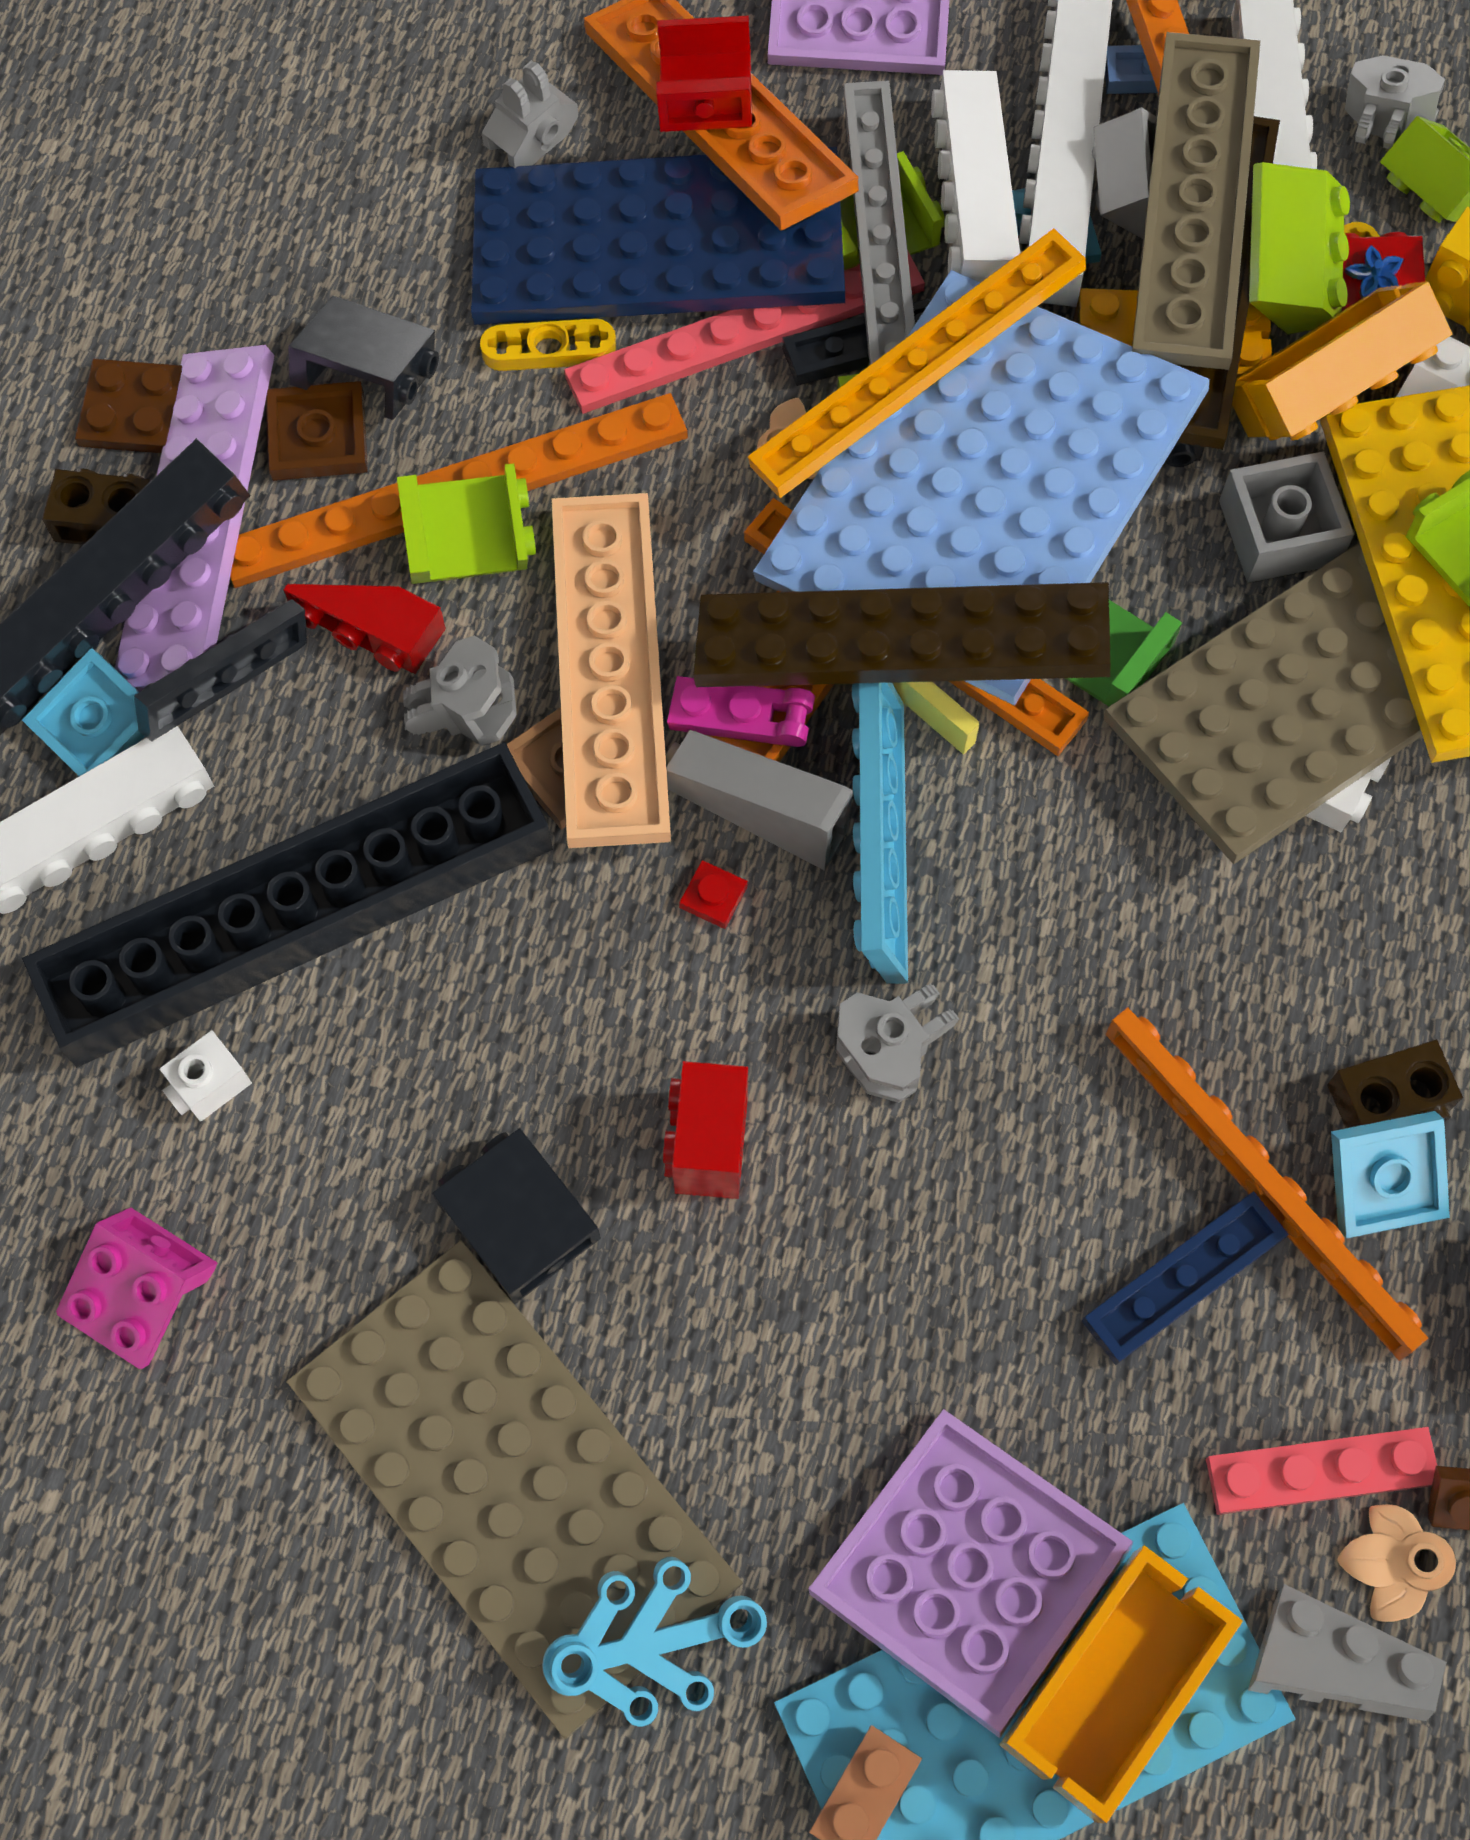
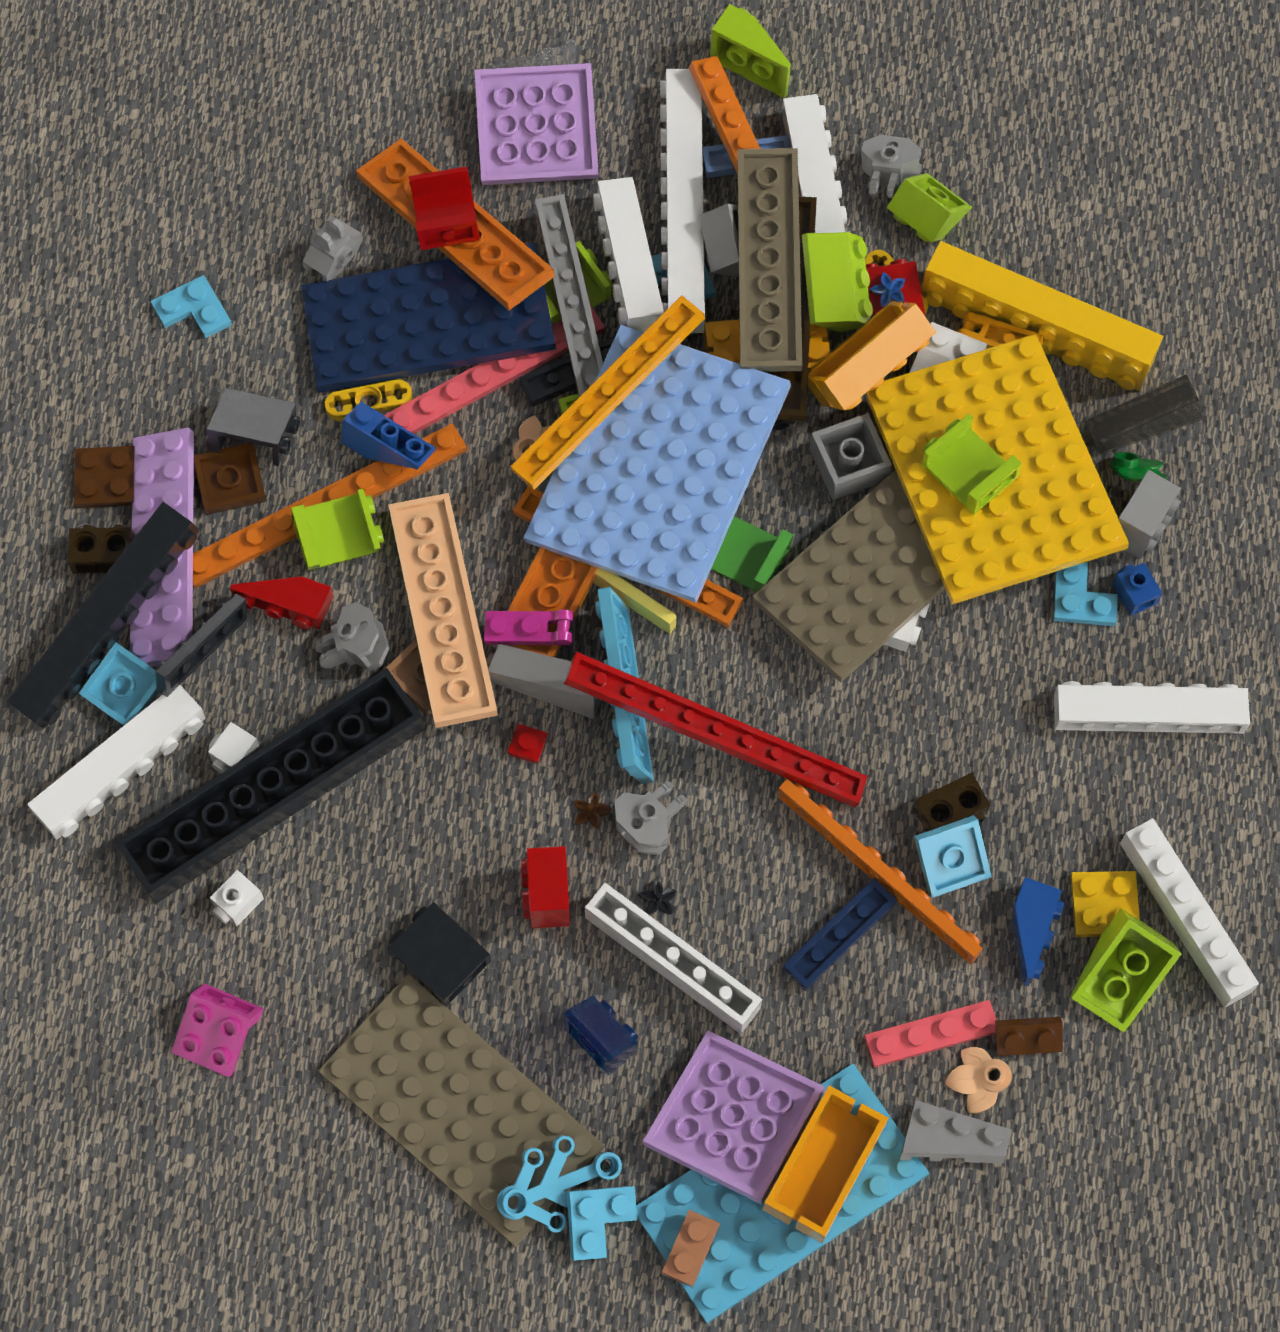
camera: 10 degrees left, 0 degrees up
(240, 833) = (231, 747): none -> white brick
(310, 171) = (193, 299): none -> medium azure plate
(558, 399) = (383, 439): none -> blue slope
(702, 1698) = (588, 1214): none -> medium azure plate
(763, 1389) = (600, 1034): none -> clear blue slope
(800, 1015) = (591, 810): none -> reddish brown plant
(889, 1174) = (658, 898): none -> black plant
(902, 1279) = (673, 958): none -> white brick
(904, 635) = (621, 569): dark brown plate -> none
(1021, 910) = (715, 729): none -> red plate

